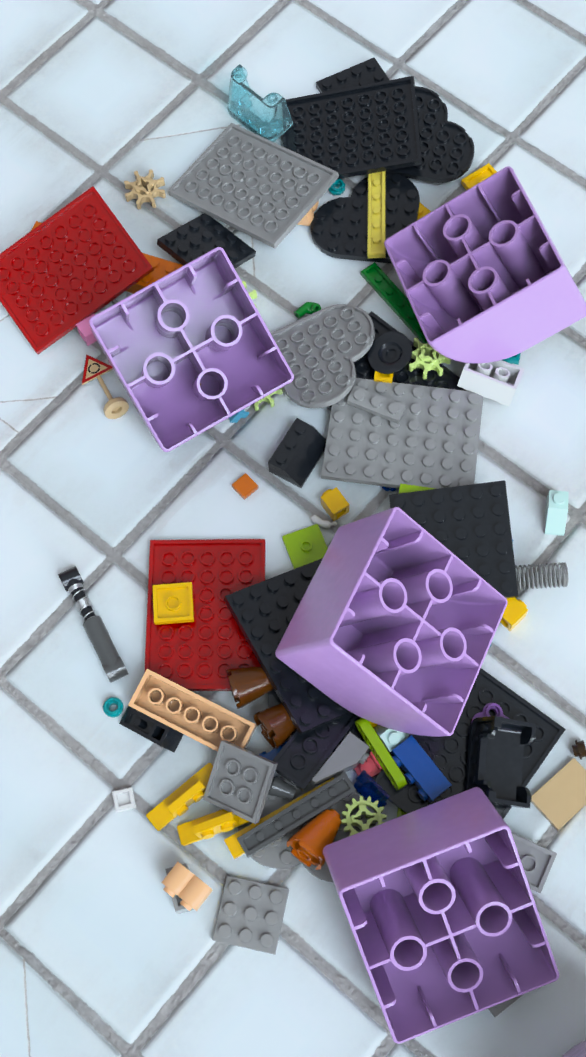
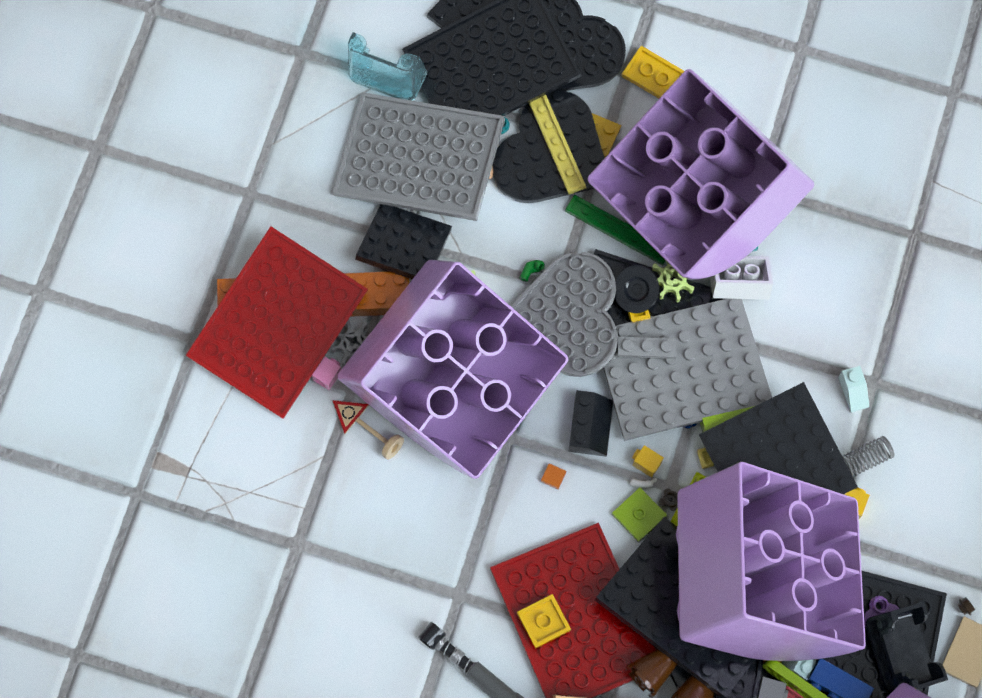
camera: 30 degrees left, 5 degrees up
(145, 189) = (307, 192): tan gear -> none

